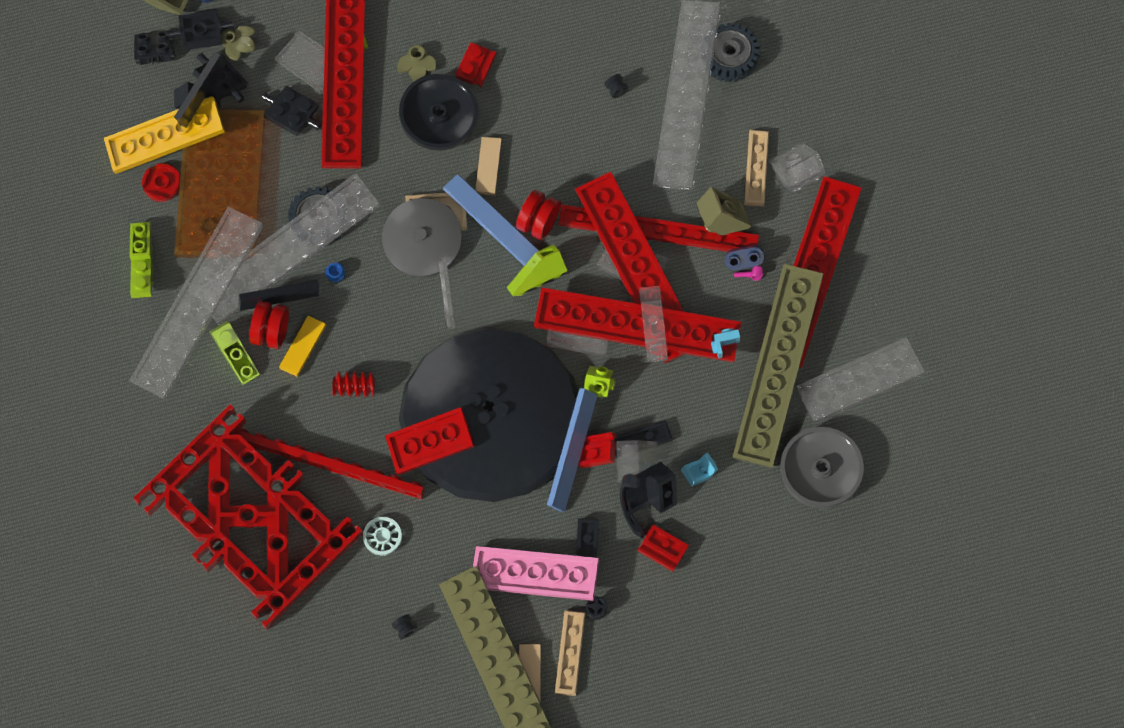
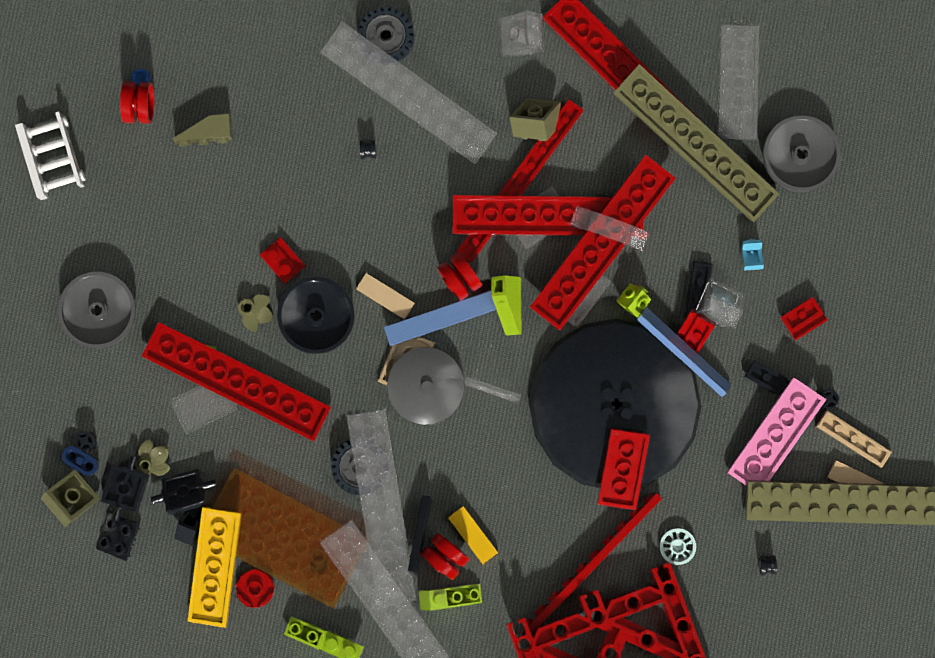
camera: 65 degrees left, 15 degrees up
(200, 89) = (193, 517): tile -> none
(291, 111) = (245, 442): black plate -> none
(335, 272) = (418, 475): blue plate -> none
(353, 383) = (532, 507): red piece -> none
(651, 486) = (755, 297): black piece -> none
(726, 337) = (656, 173): medium azure bracket -> none
(743, 256) = (583, 121): dark blue plate -> none
(756, 168) = (503, 69): tan tile -> none
(756, 273) = (600, 119): dark pink hand -> none

